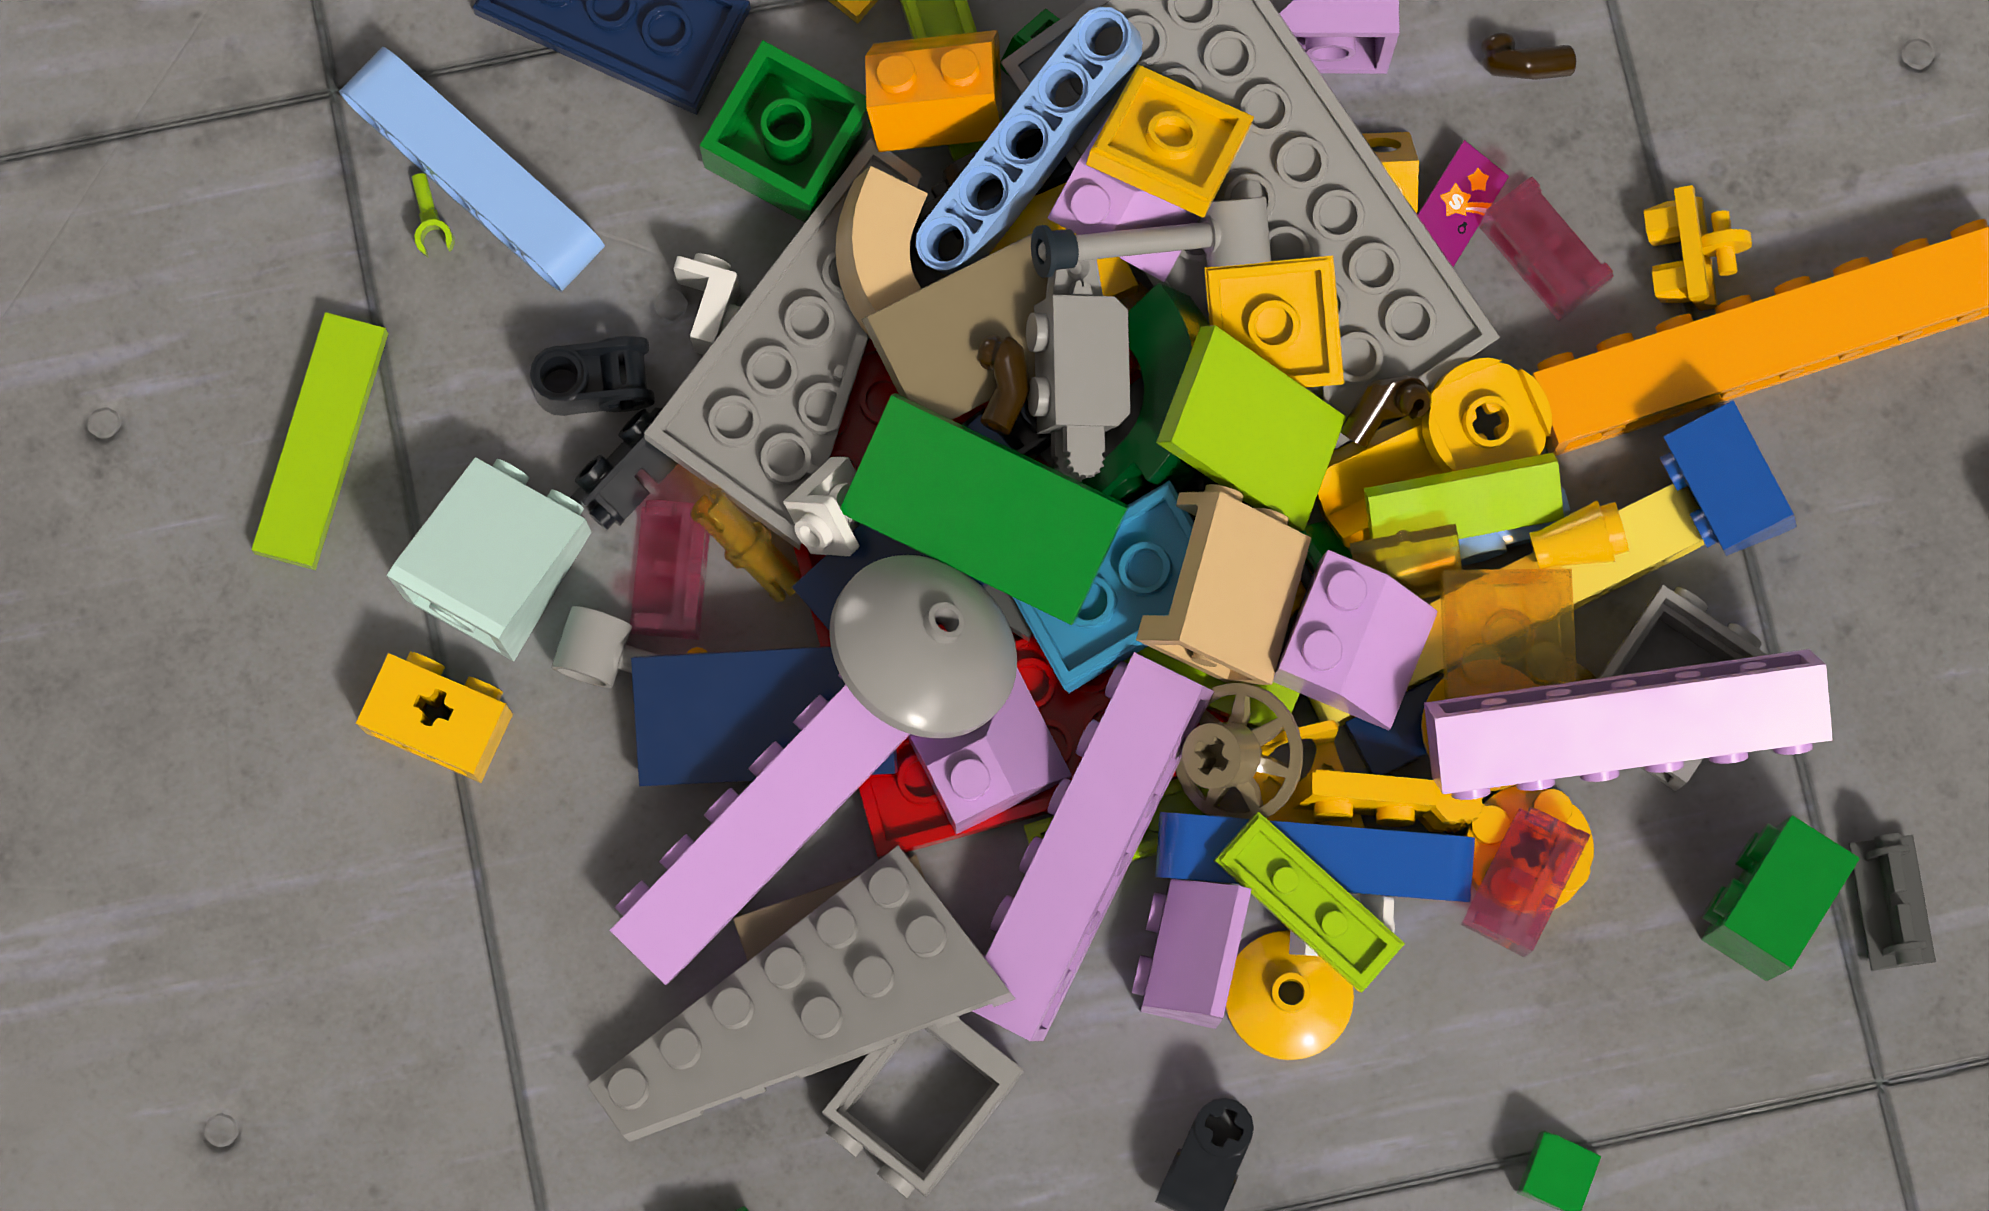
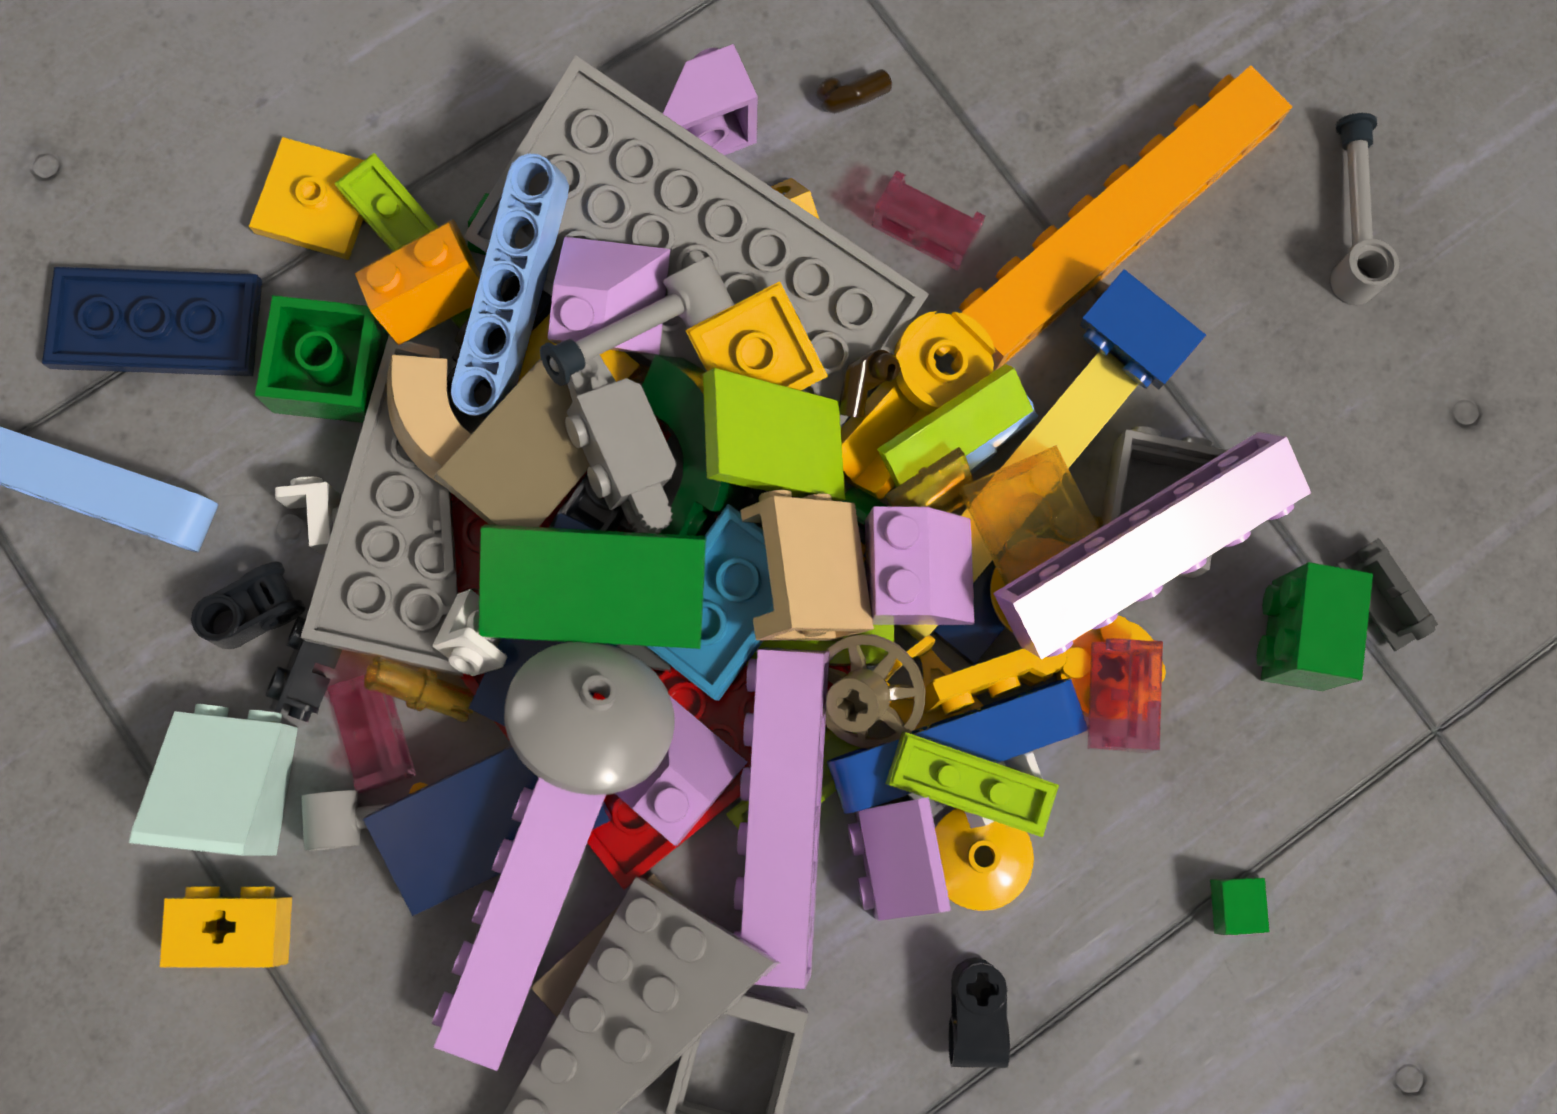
camera: 30 degrees left, 0 degrees up
(320, 441) = (50, 748): lime tile -> none
(428, 215) = (71, 538): lime hand -> none
(1012, 381) = (573, 476): dark brown arm -> none
(1170, 140) = (618, 241): yellow plate -> none
(1461, 200) = (851, 206): magenta sticker -> none
(1581, 538) = (1054, 418): yellow cone -> none
(1685, 222) = (1018, 161): yellow hips -> none

